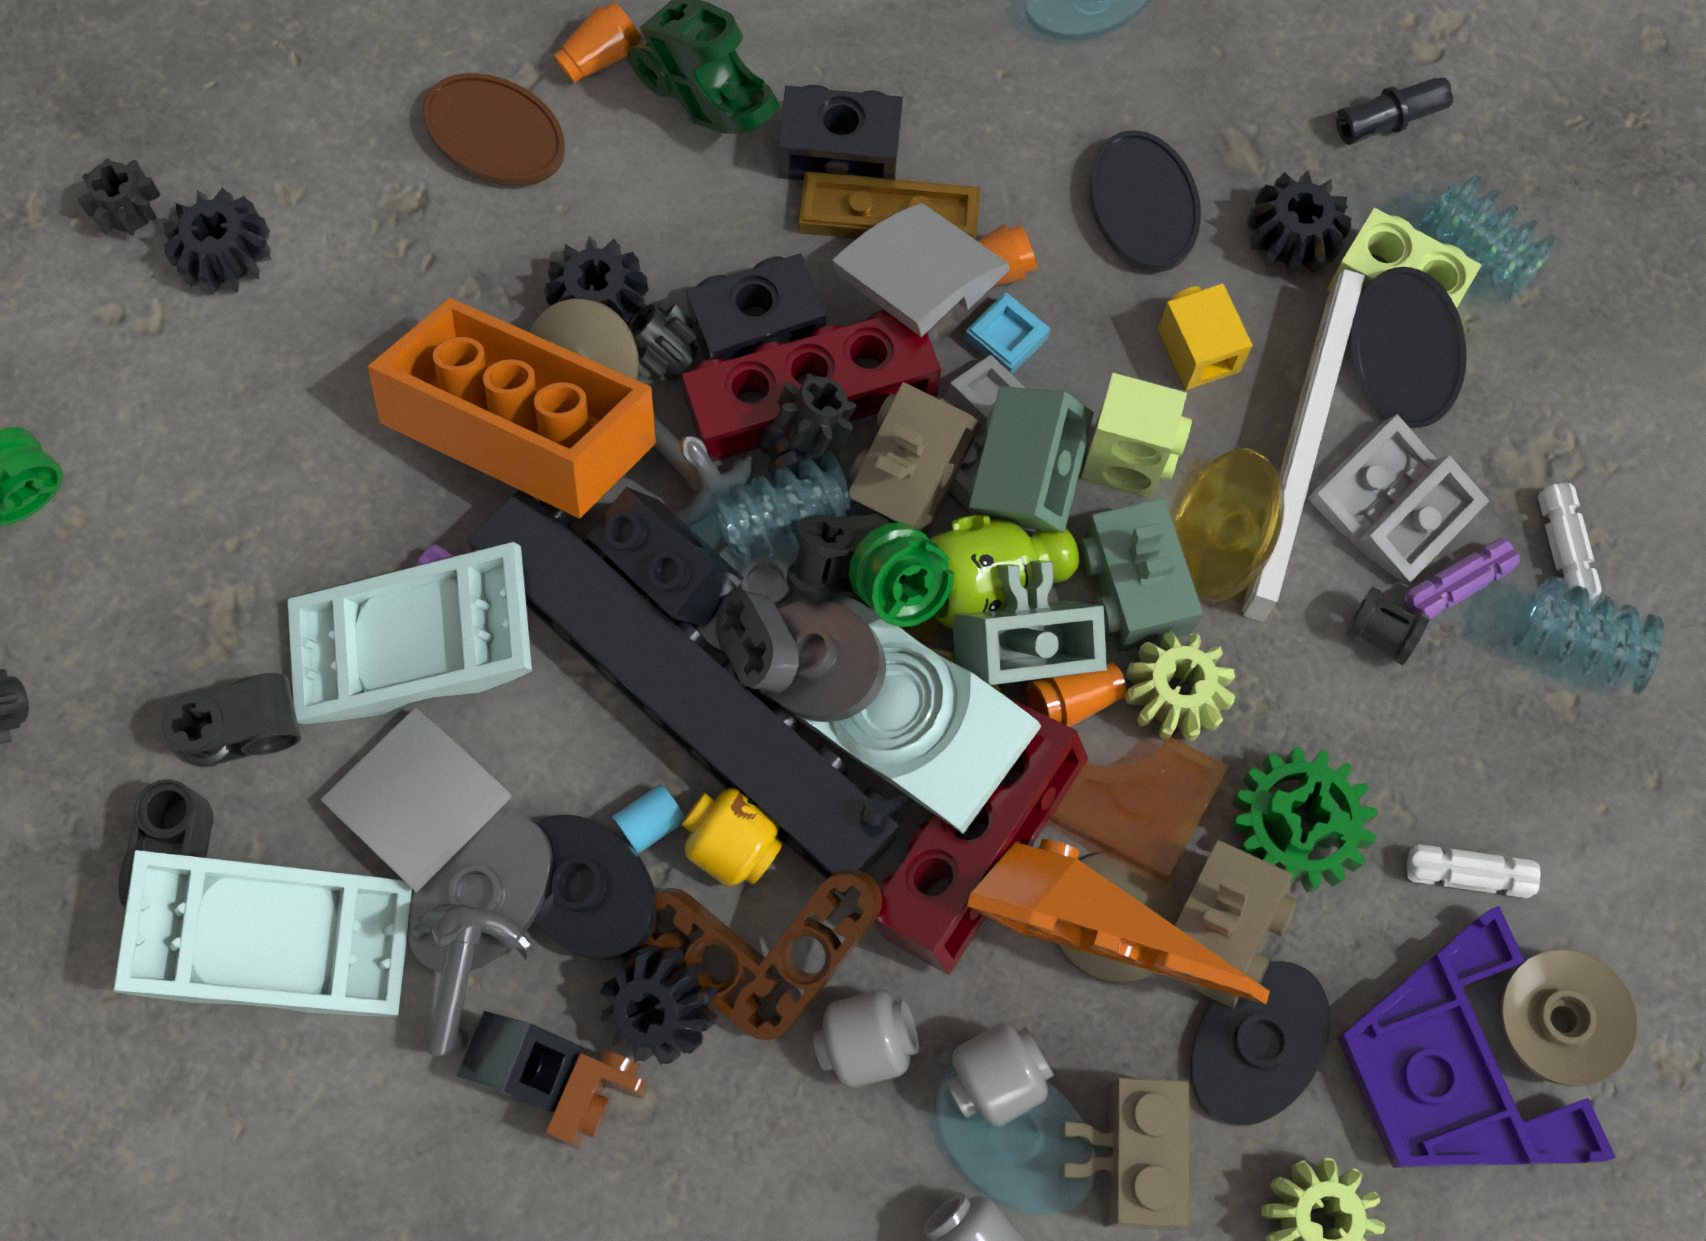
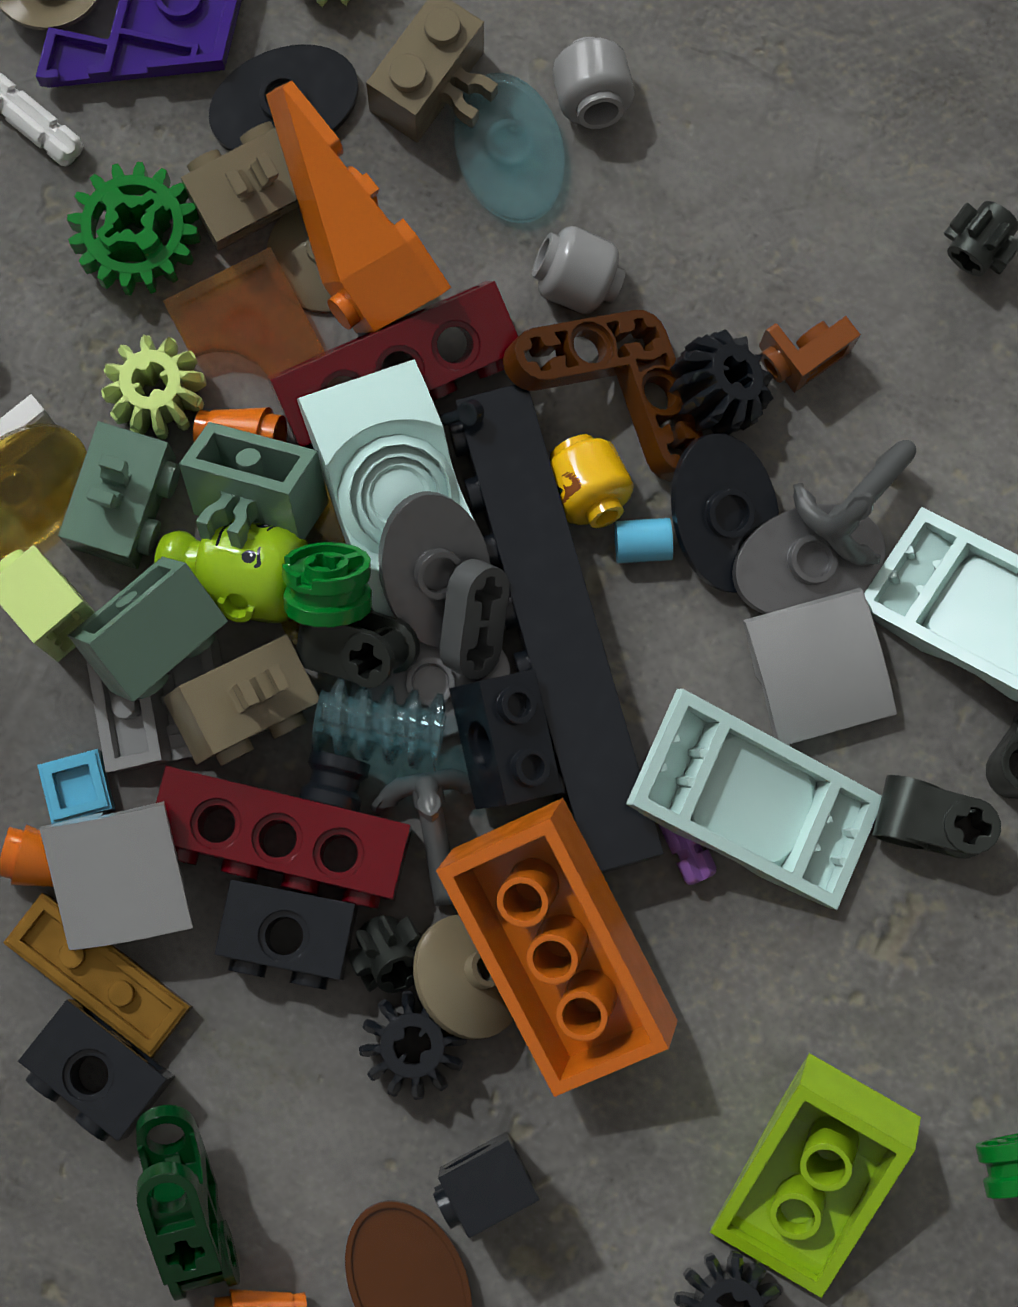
camera: 150 degrees left, 10 degrees up
(191, 382) = (817, 1175): none -> lime slope
(467, 208) = (484, 1186): none -> black brick
(519, 1061) = (851, 403): black brick -> none
(814, 414) = (306, 776): pearl dark grey gear -> none
(999, 1075) = (498, 178): light grey head -> none

